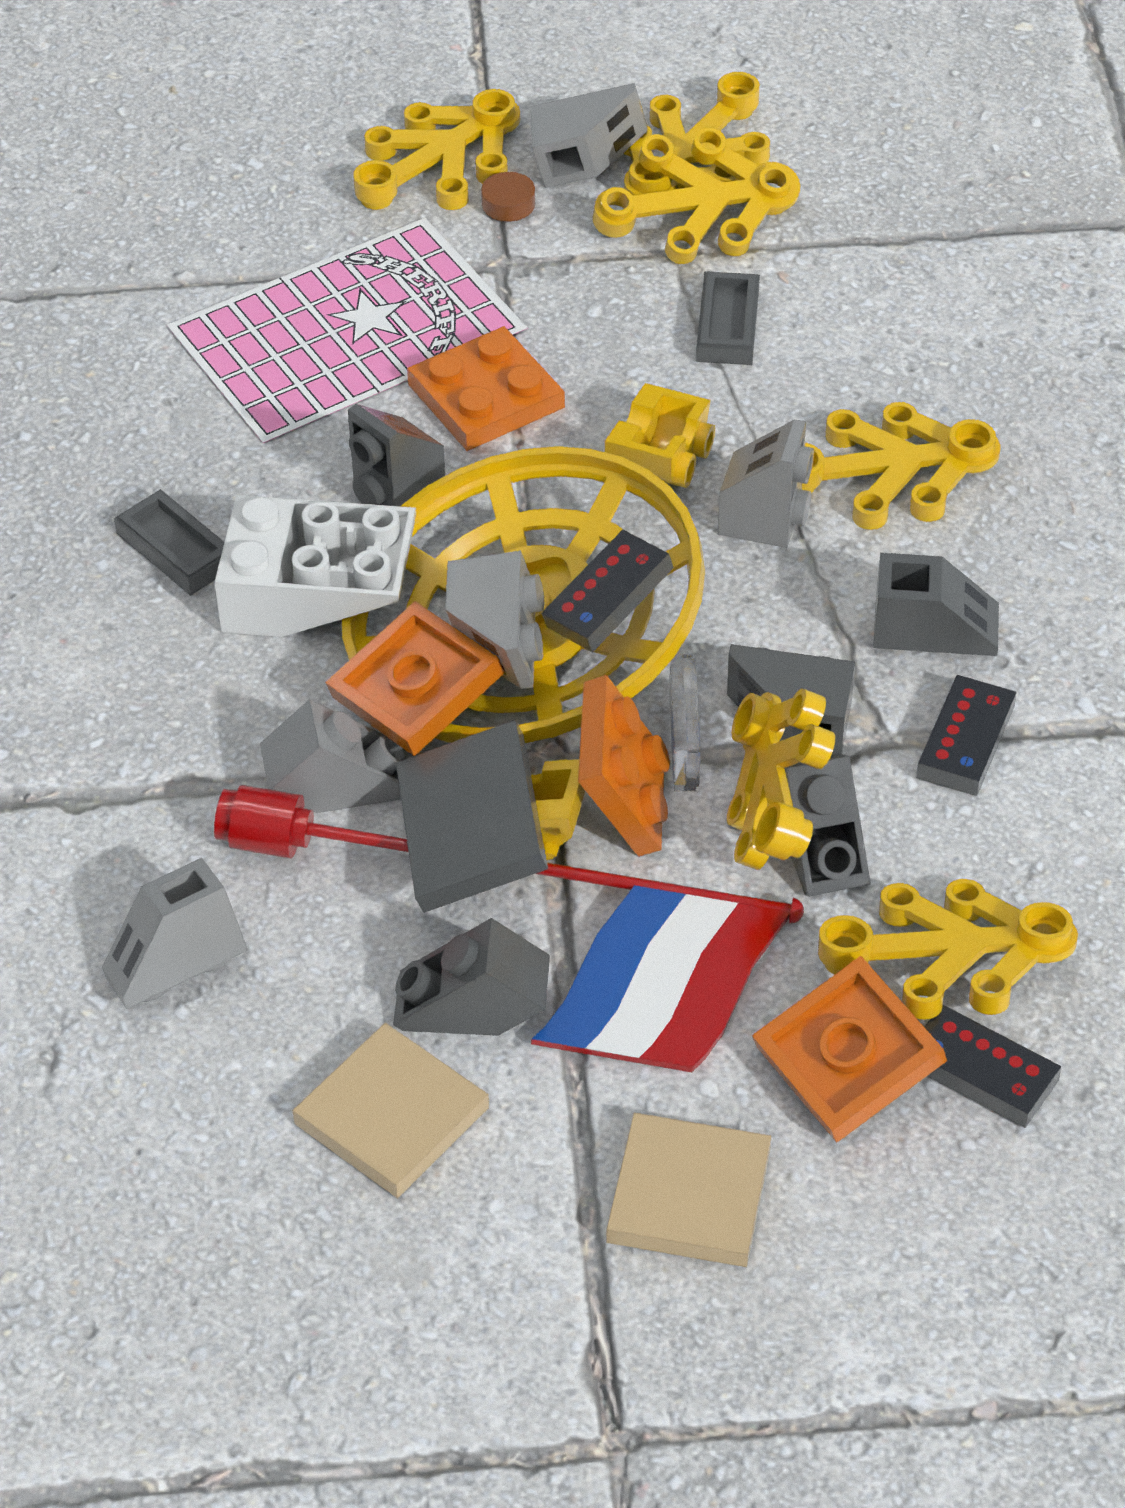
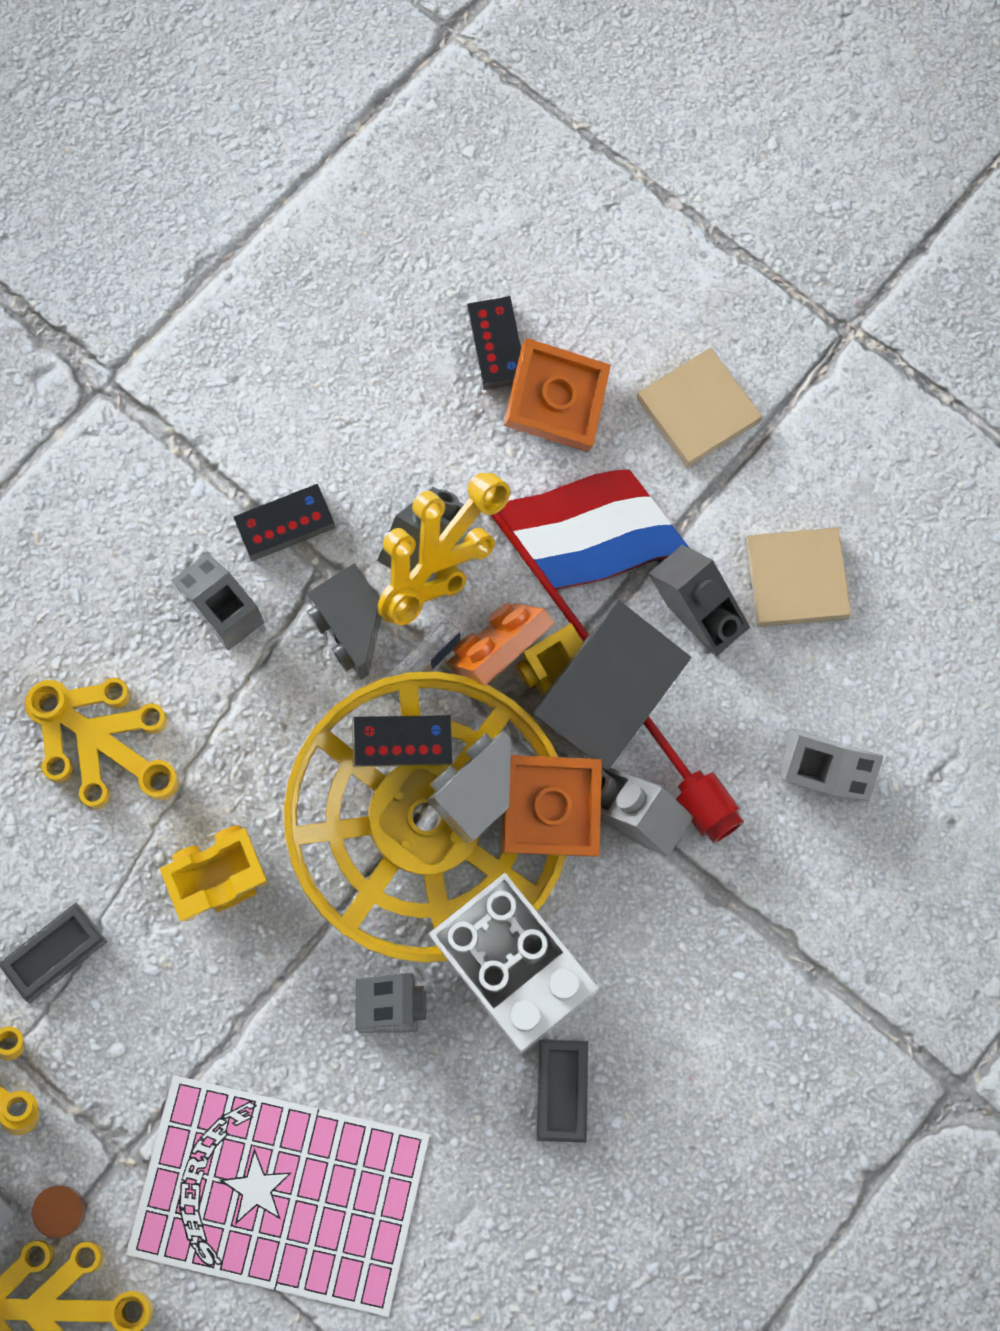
camera: 135 degrees left, 25 degrees up
(485, 388) = (257, 1039): orange plate -> none
(764, 487) = (206, 766): light grey slope -> none
(1029, 936) = (439, 402): yellow plant -> none

